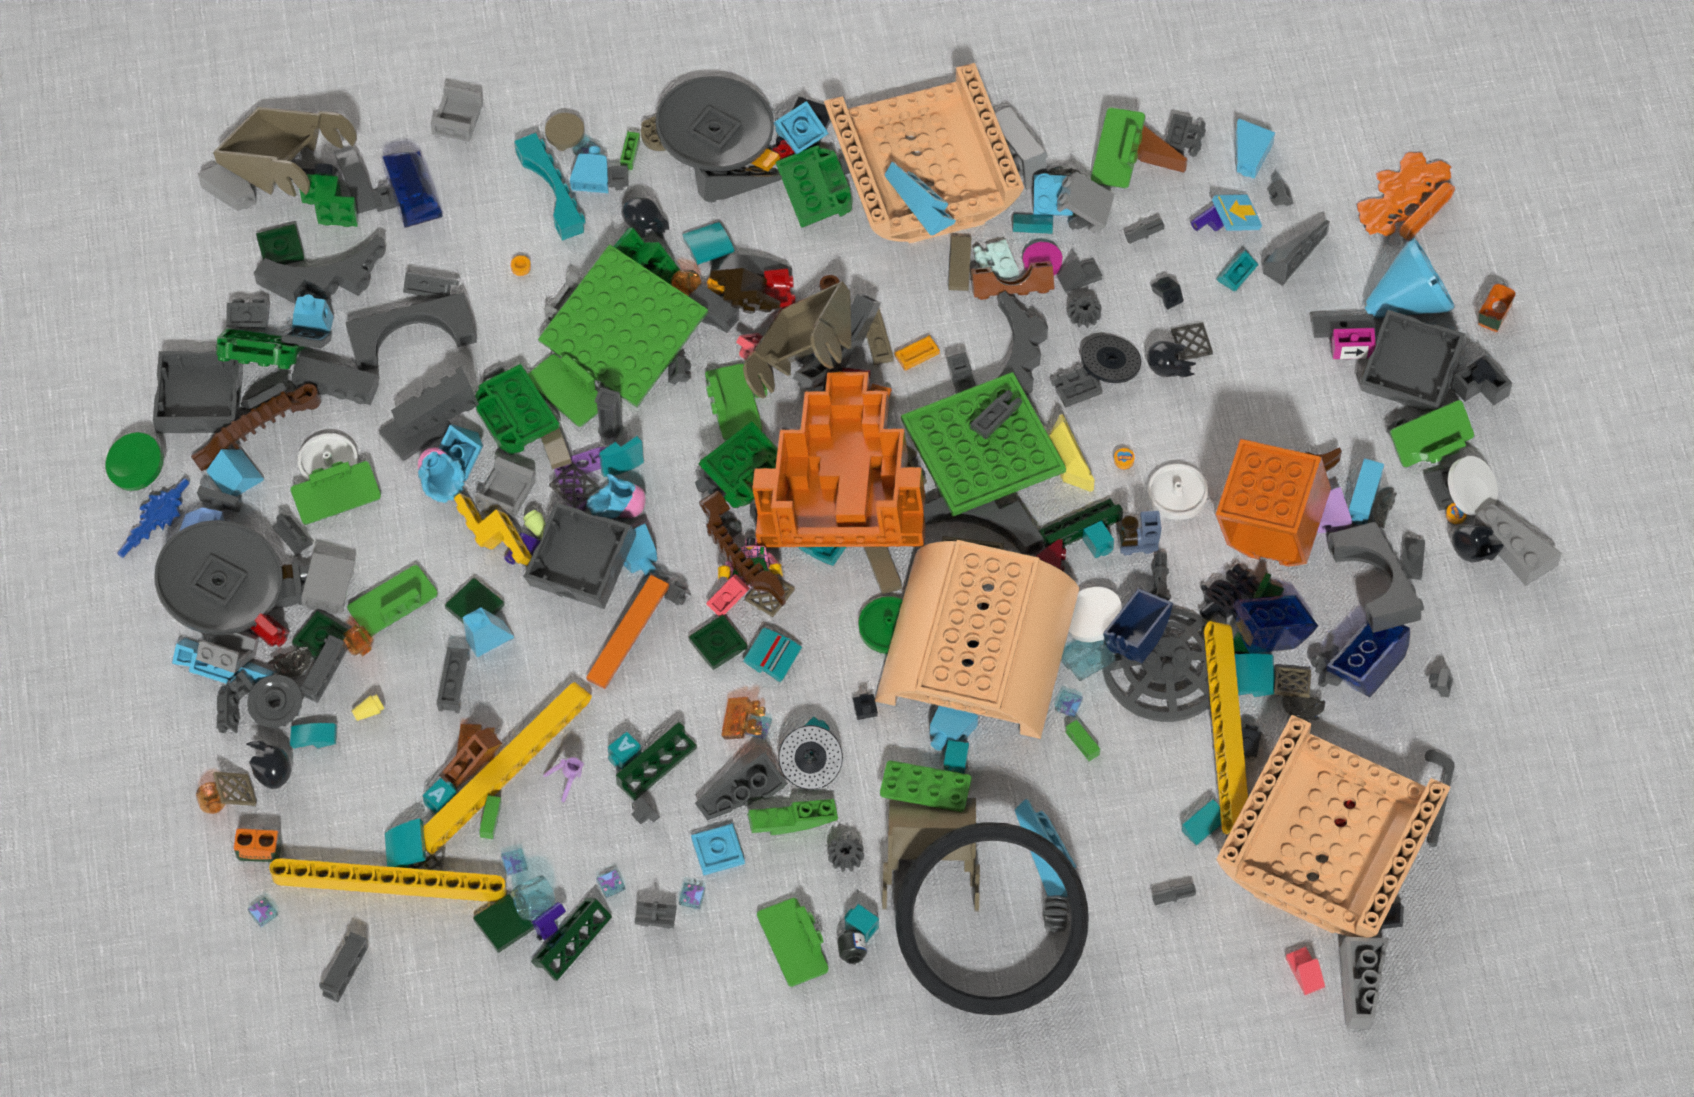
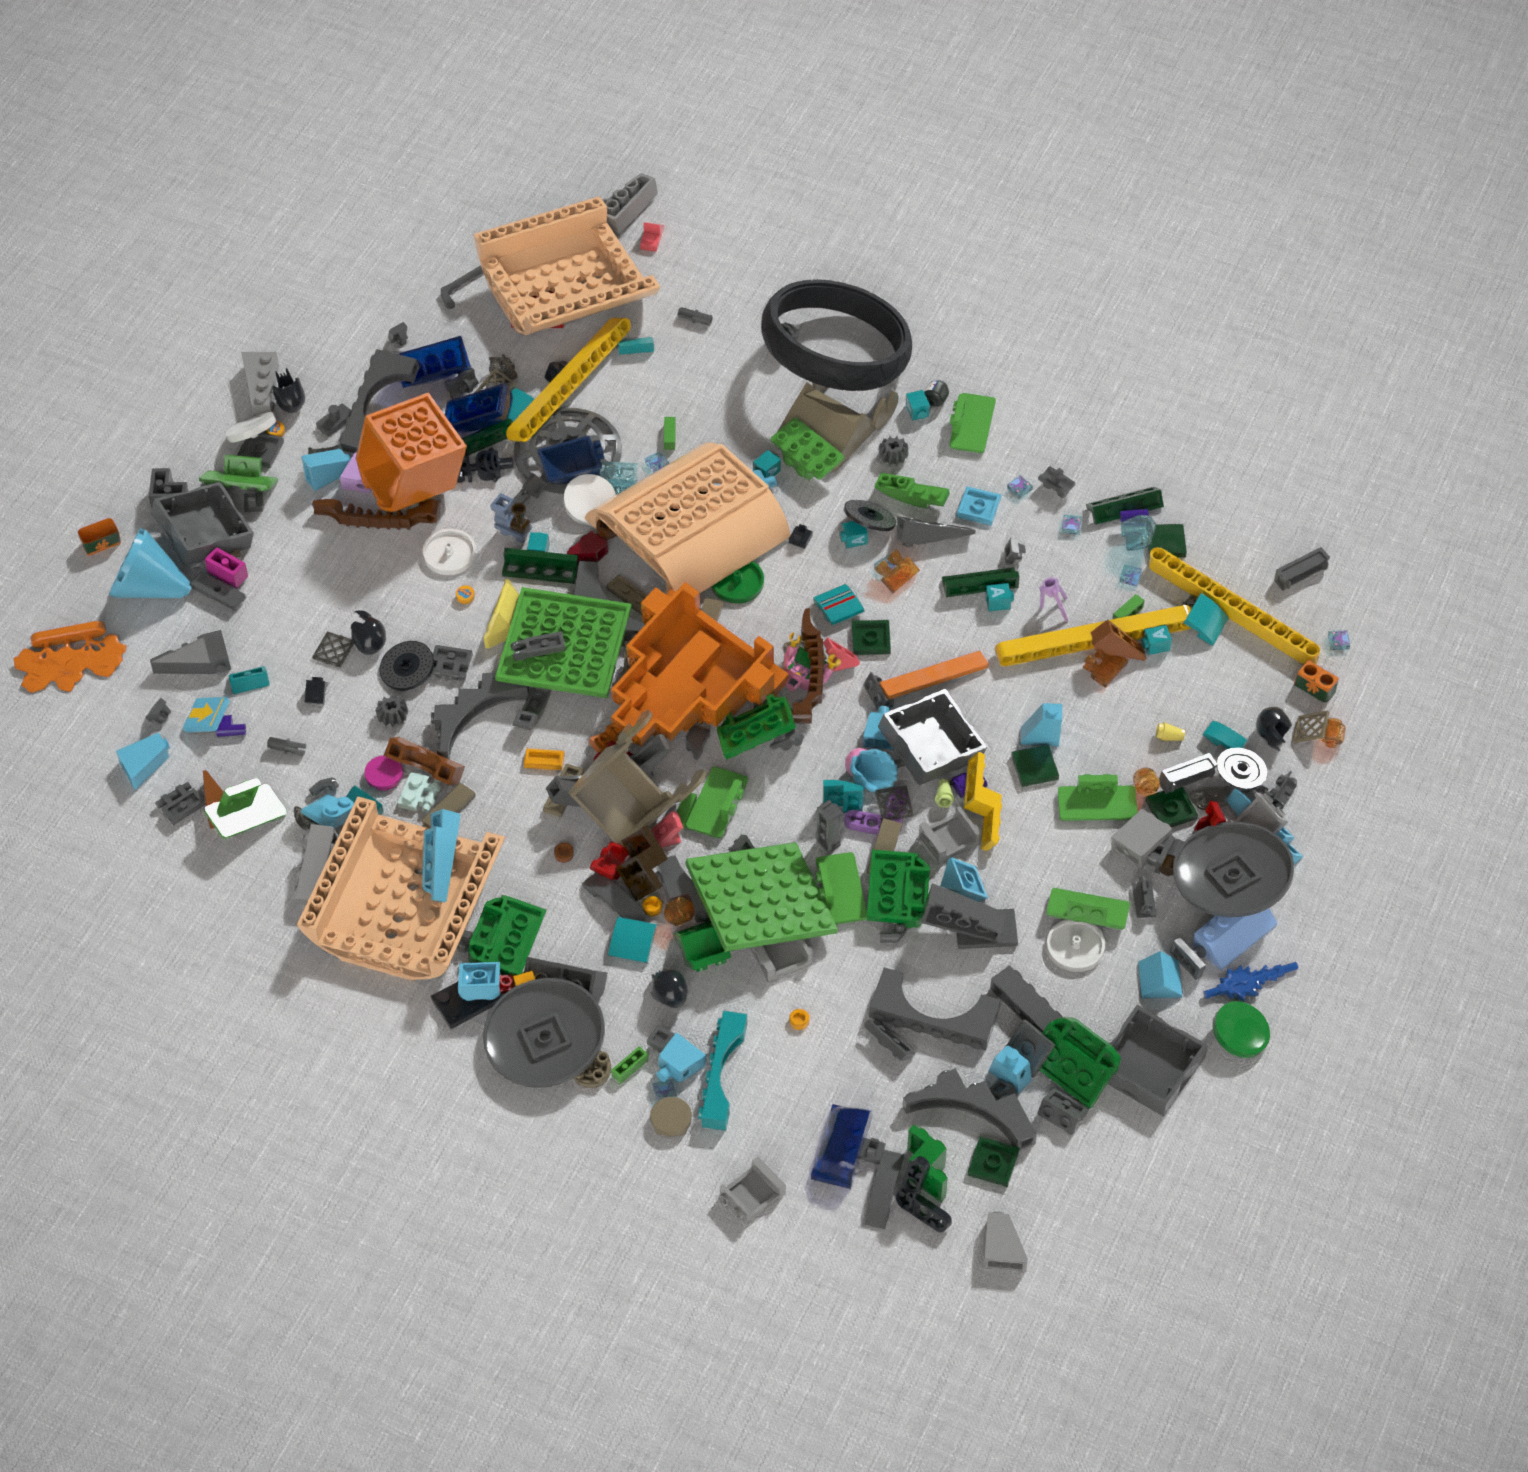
camera: 145 degrees left, 5 degrees down
(263, 396) = (1100, 1014): dark grey tile -> none
(271, 138) = (948, 1240): dark tan piece -> none
(301, 399) = (1165, 1004): reddish brown piece -> none
(440, 475) = (995, 869): medium azure hair -> none
(452, 679) = (1091, 712): dark grey container -> none
(1042, 825) = (755, 381): medium azure wedge -> none
(1078, 275) = (370, 743): dark grey slope -> none
(1086, 200) = (314, 781): light grey panel -> none
(1483, 372) = (167, 477): black tile -> none

